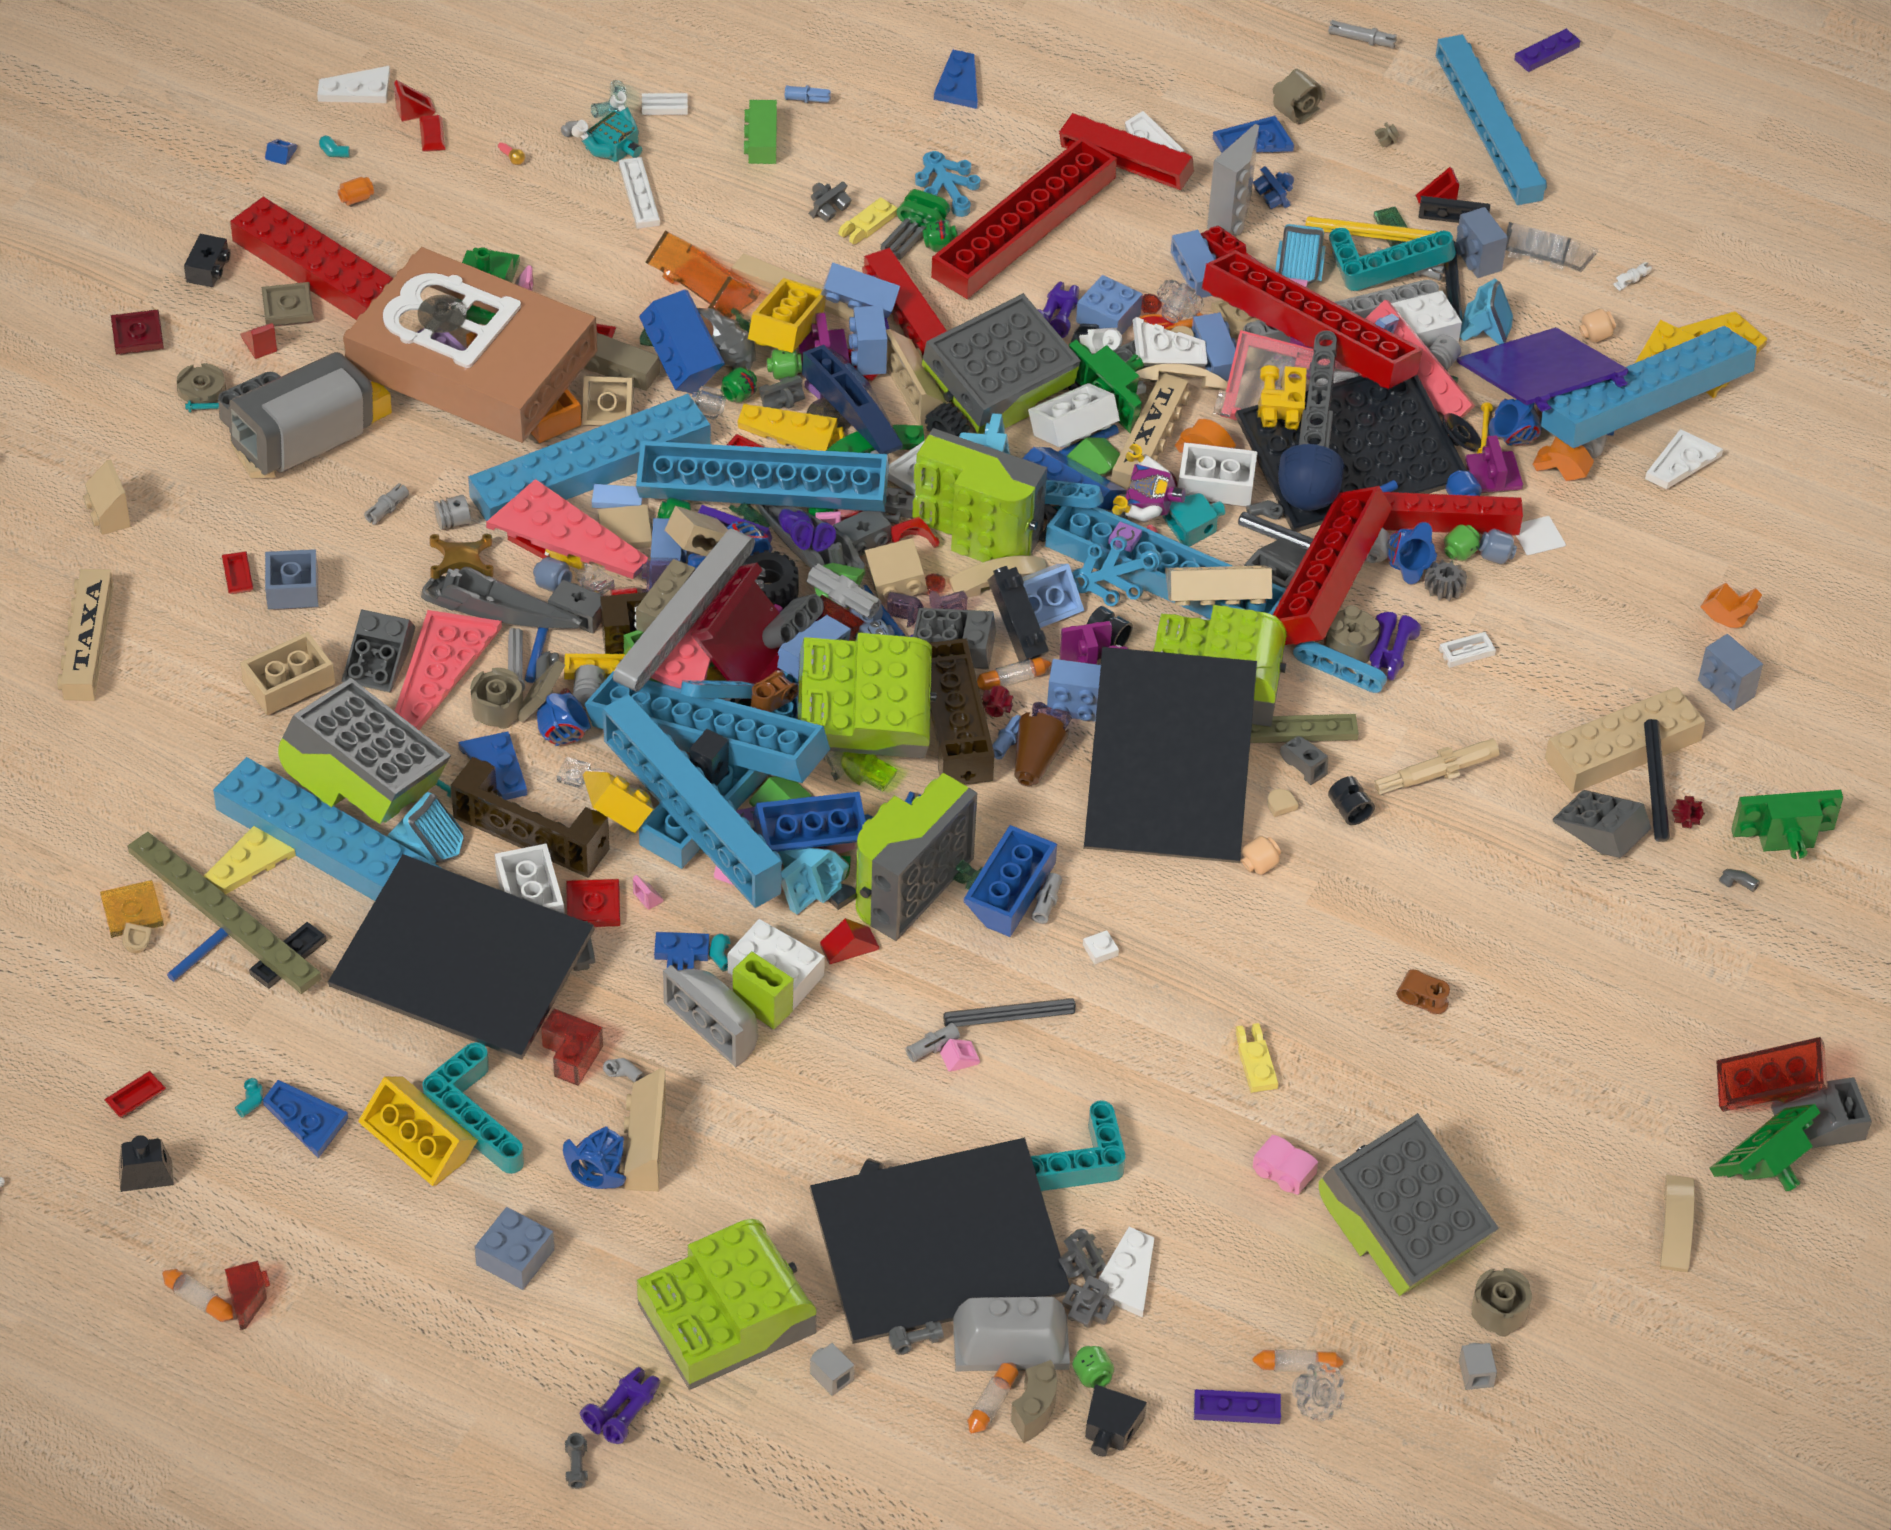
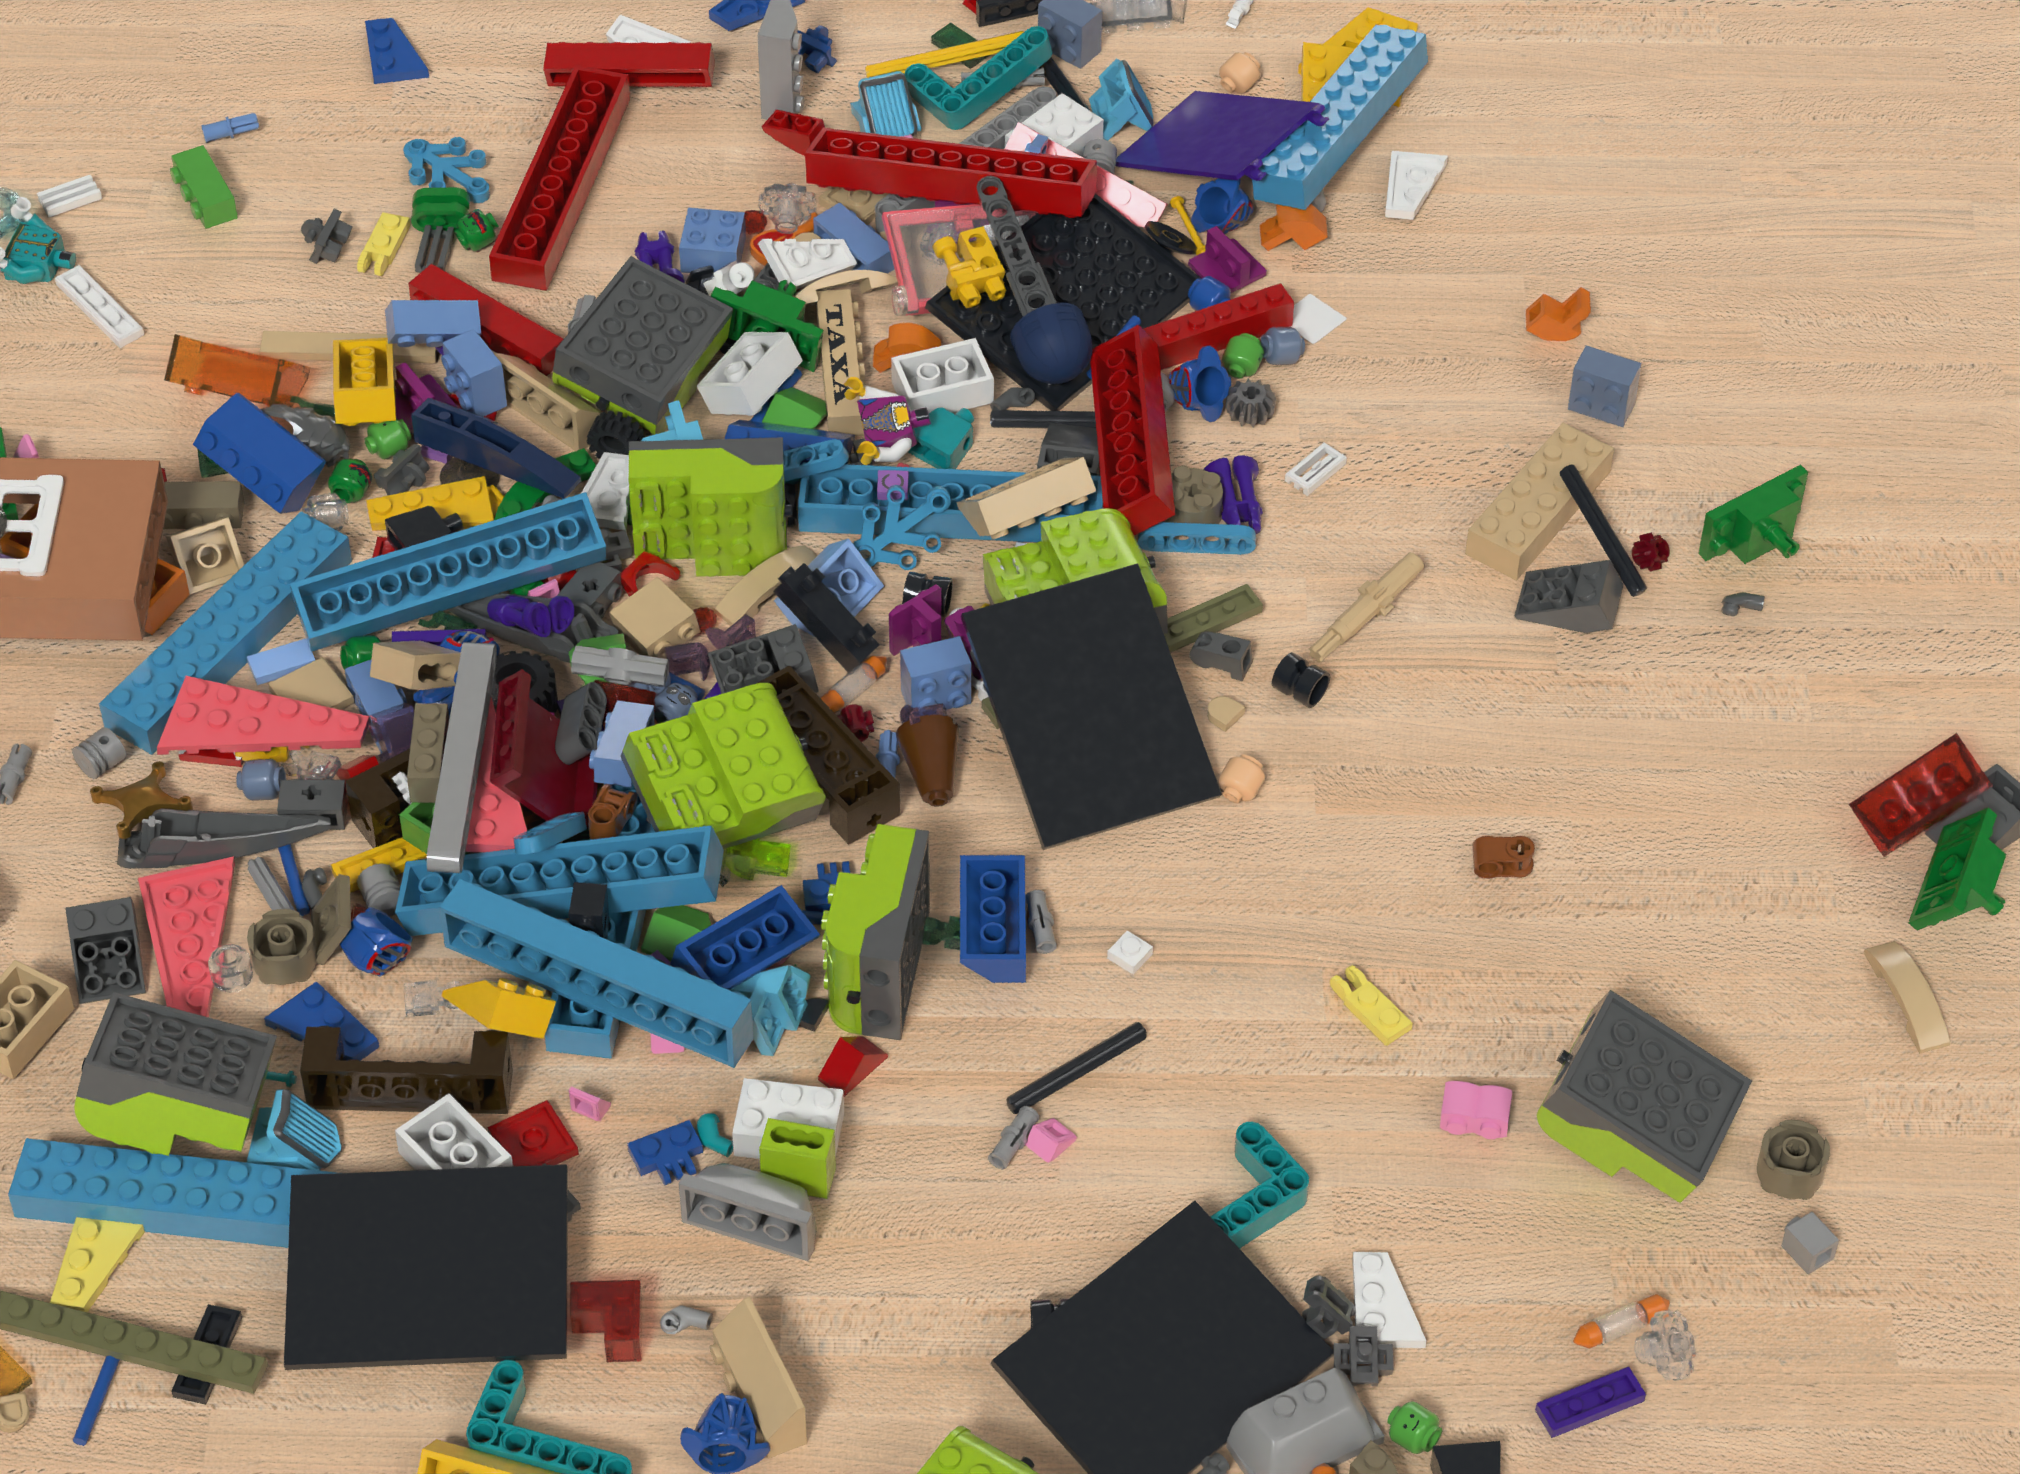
camera: 25 degrees left, 0 degrees up
(453, 697) = (230, 968): none -> clear head
(766, 435) = (420, 526): none -> black torso
(1191, 257) = (772, 156): medium blue brick -> none

